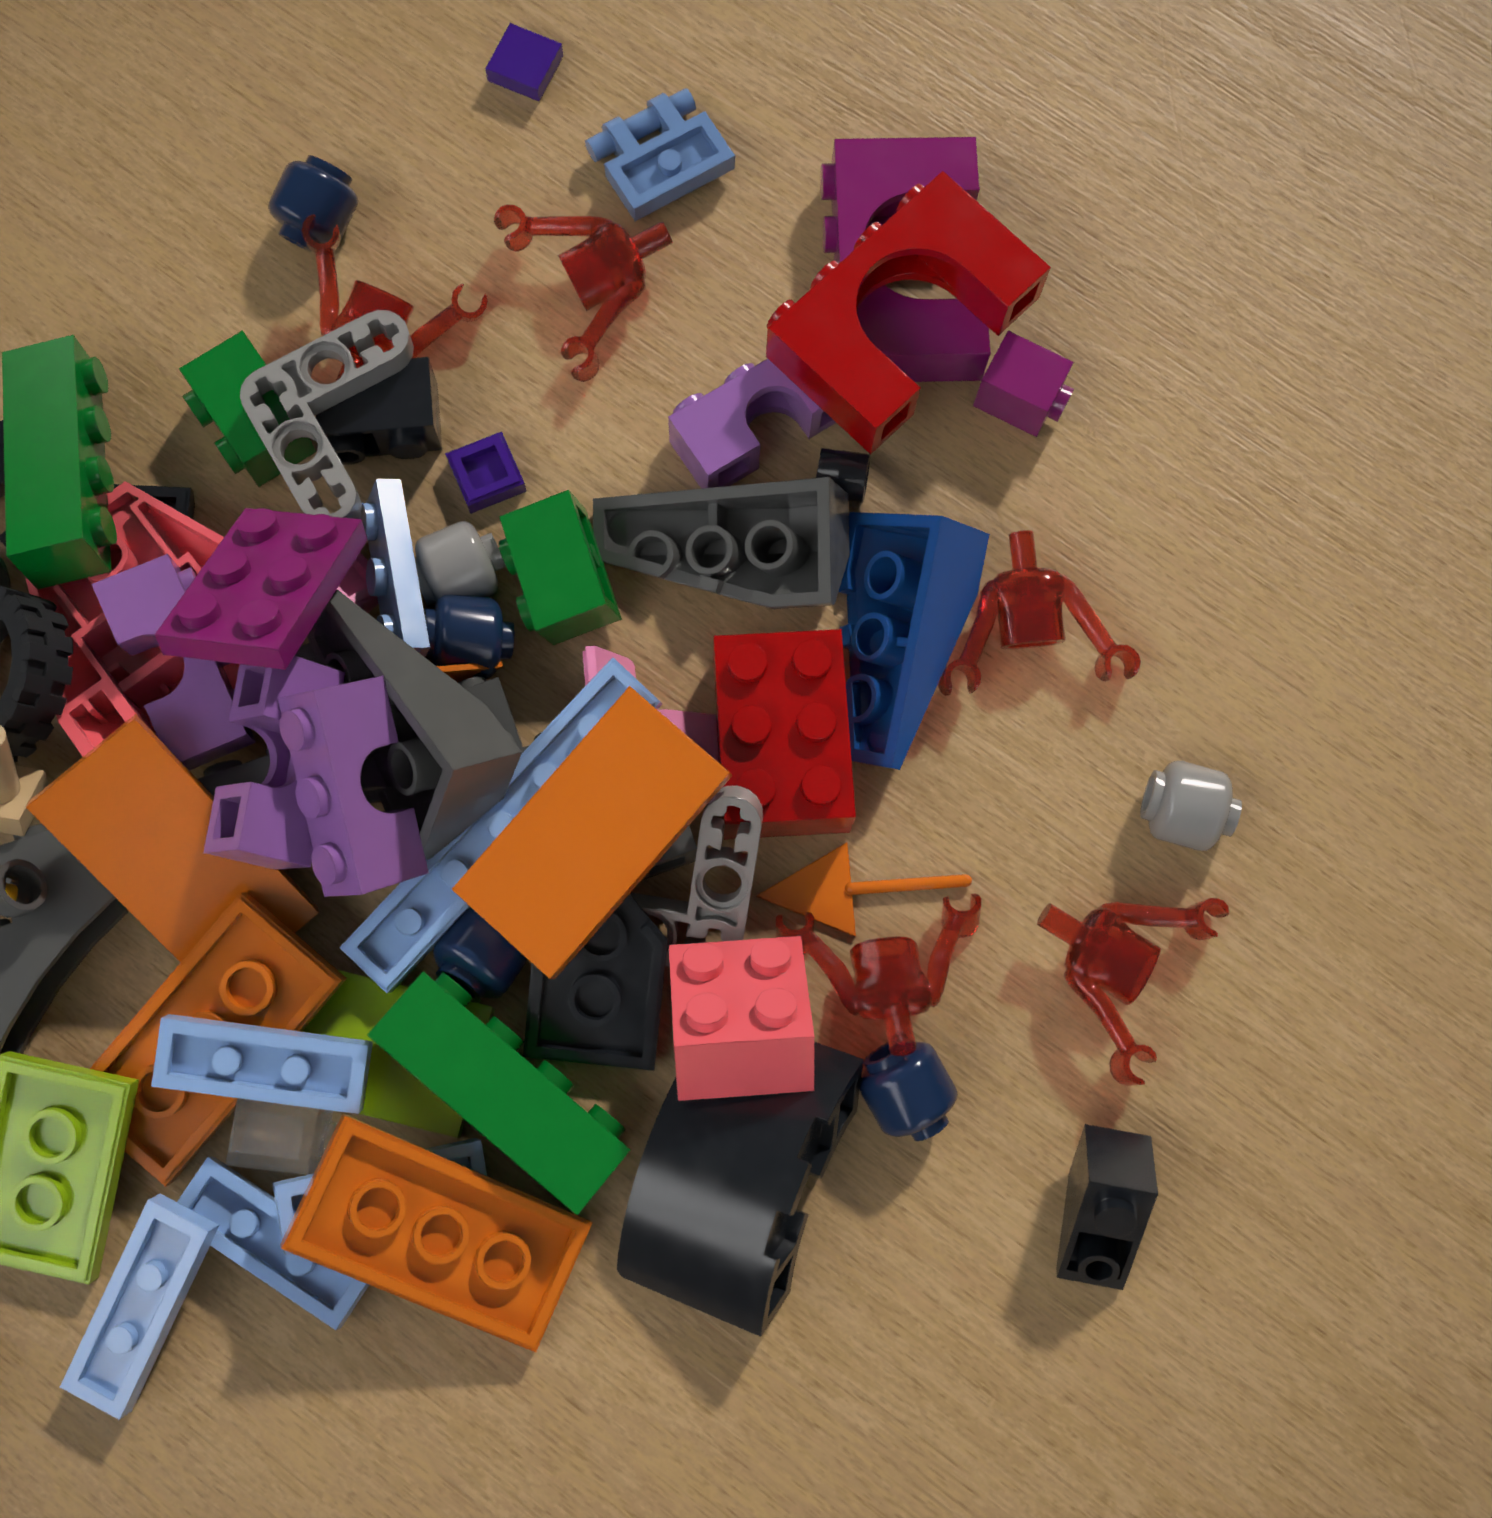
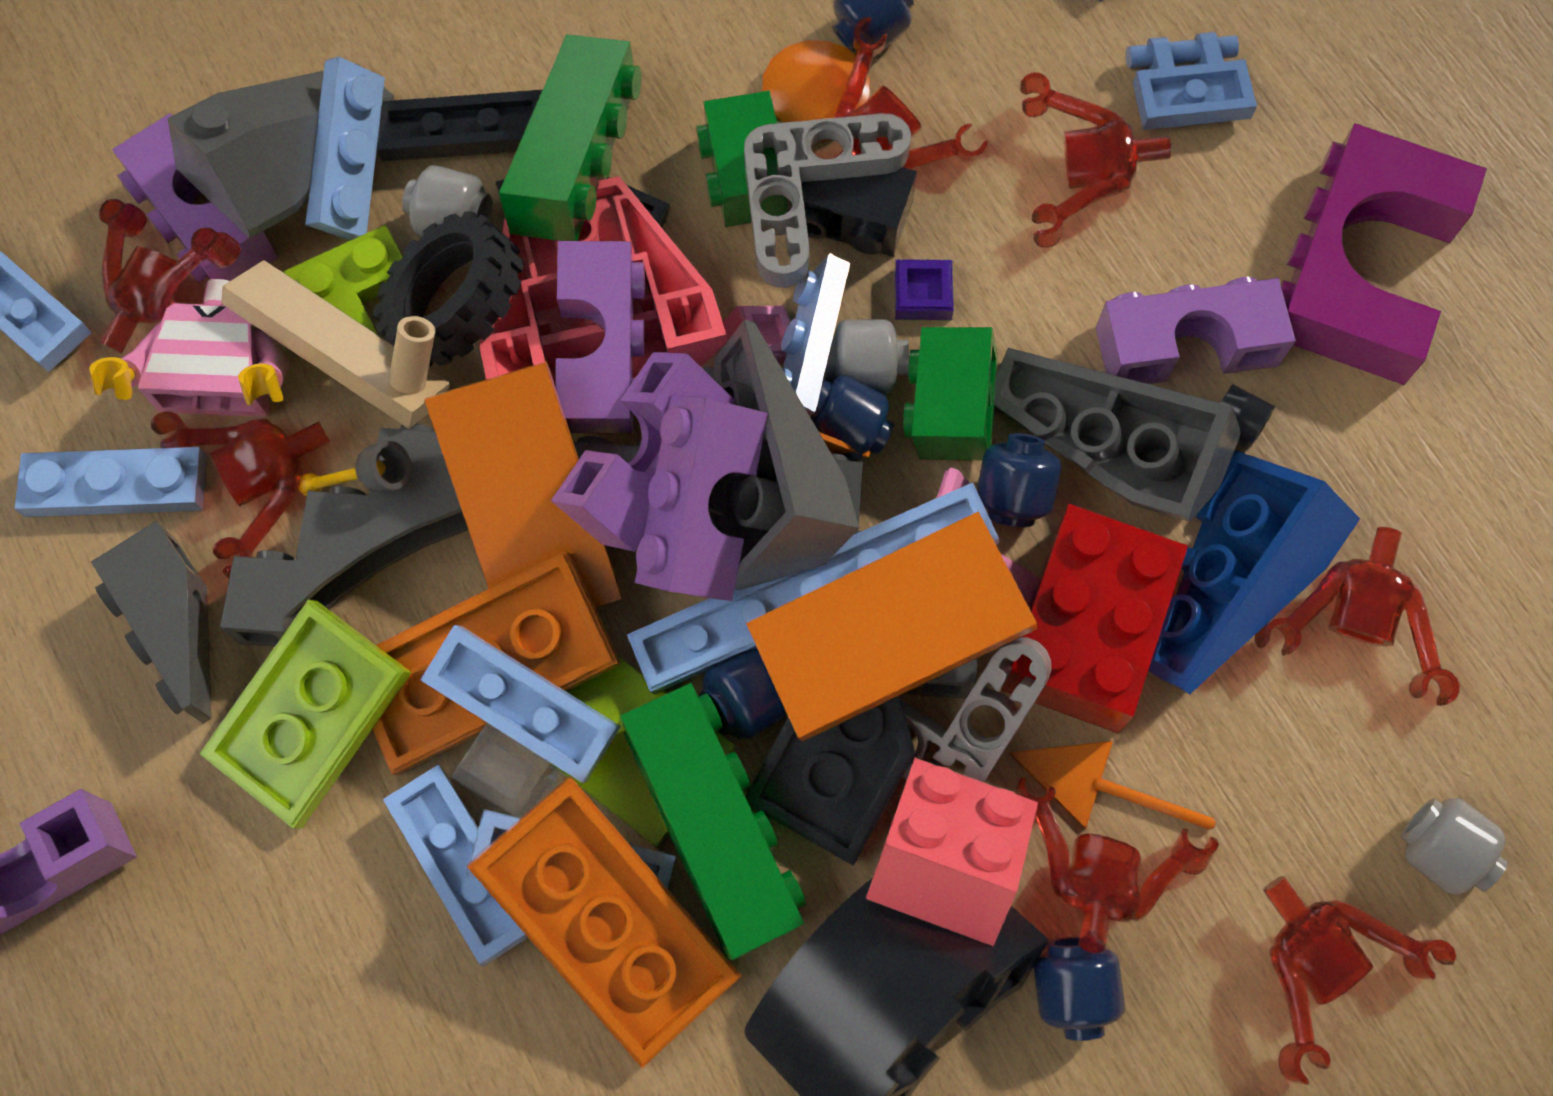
camera: 30 degrees right, 5 degrees down
(139, 1306) = (326, 865): light blue plate -> none
(262, 588) = (697, 301): magenta plate -> none
(279, 302) = (809, 80): none -> orange dish
(657, 630) = (1018, 480): none -> dark blue head
(931, 238) = (1413, 237): red arch -> none
(1024, 384) = (1445, 402): magenta brick -> none

